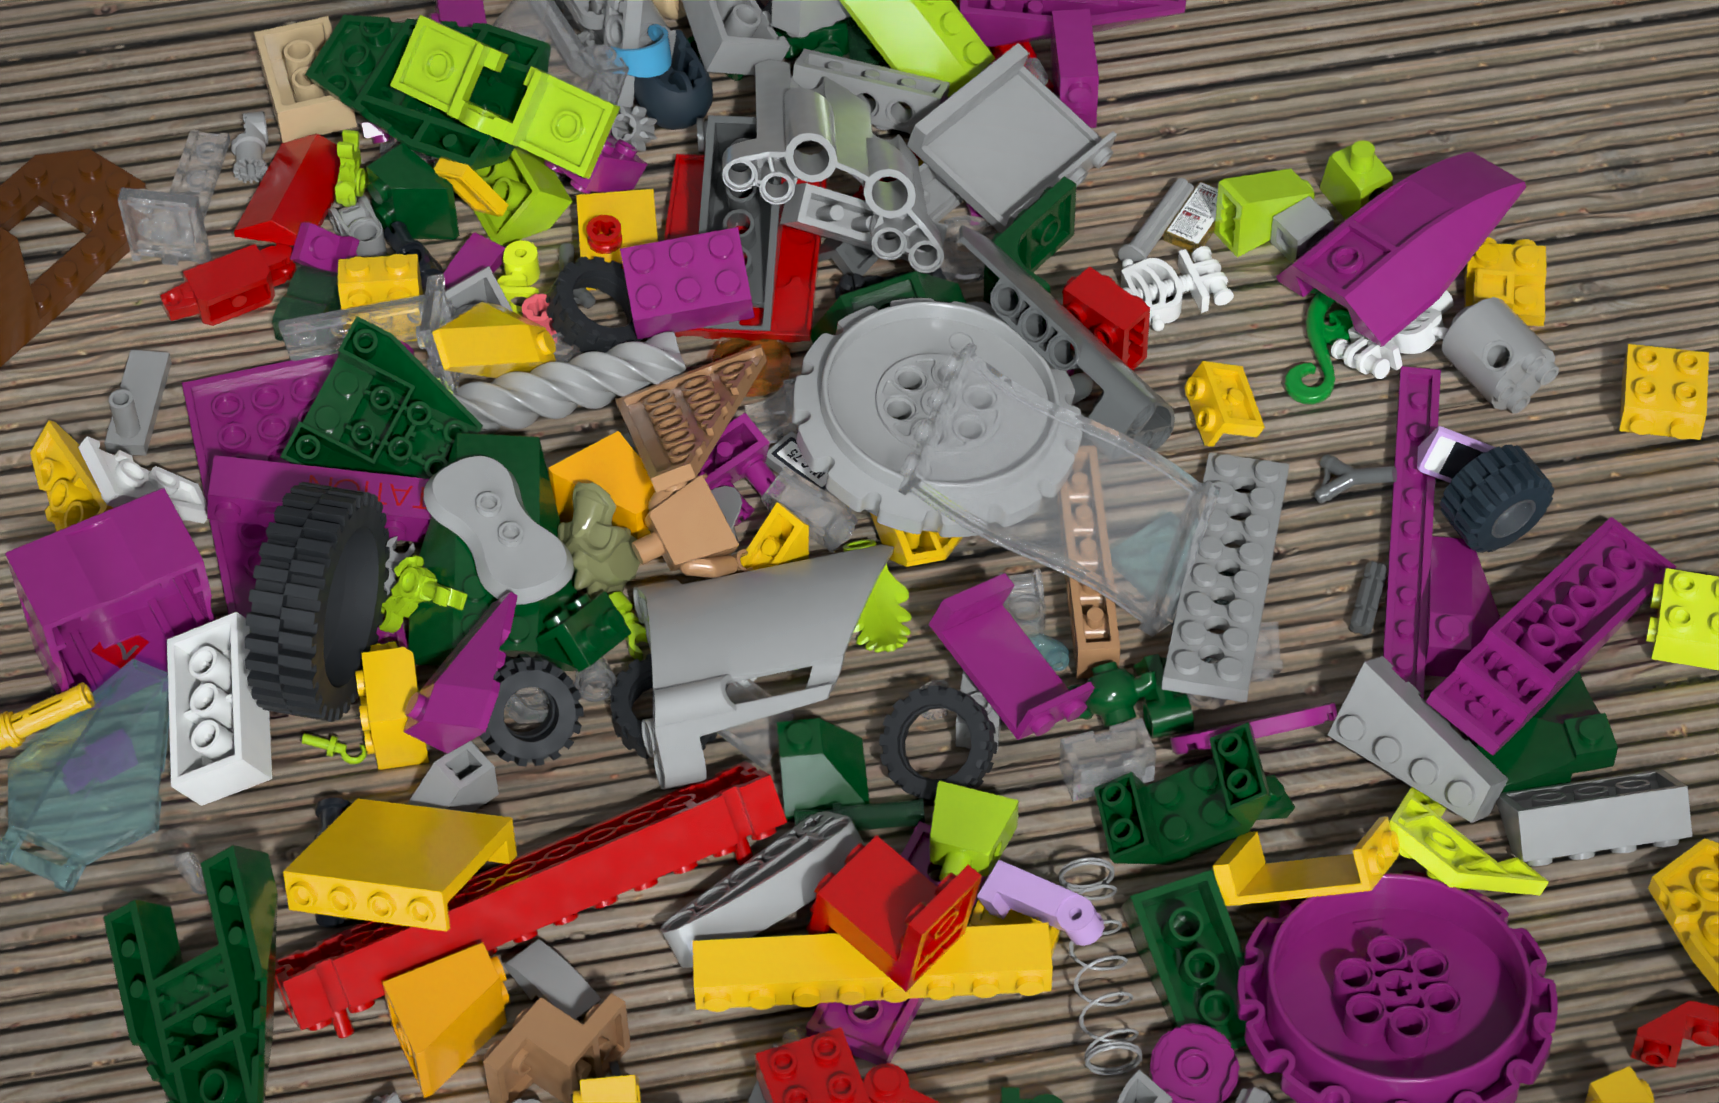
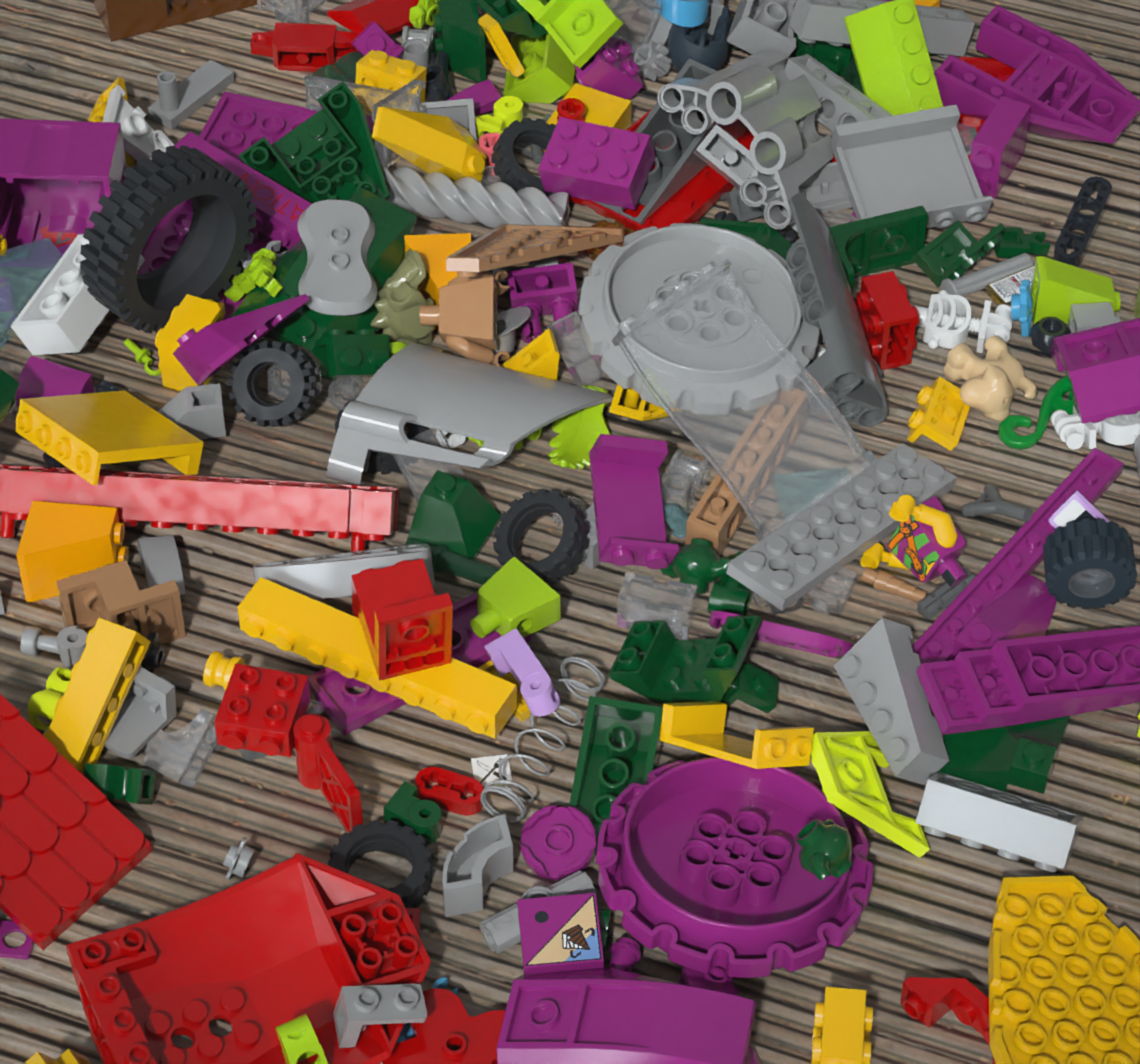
camera: 30 degrees right, 5 degrees down
(274, 828) = (50, 379): none -> magenta brick
(713, 1066) = (219, 669): none -> yellow wheel
(1042, 1071) = (449, 790): none -> red beam
(1061, 1027) = (486, 769): none -> white sticker
(1111, 213) = (955, 252): none -> dark green bracket
(1159, 172) = (1016, 242): none -> dark green plate
(1206, 115) = (1083, 222): none -> black beam
(1223, 241) = (1023, 307): none -> dark azure animal
(1252, 335) = (989, 380): none -> tan animal
(1264, 259) = (1045, 330): none -> black plate
(1307, 615) = (889, 583): none -> medium nougat animal
(1325, 558) = (922, 544): none -> torso
(1500, 941) = (824, 848): none -> dark green piece

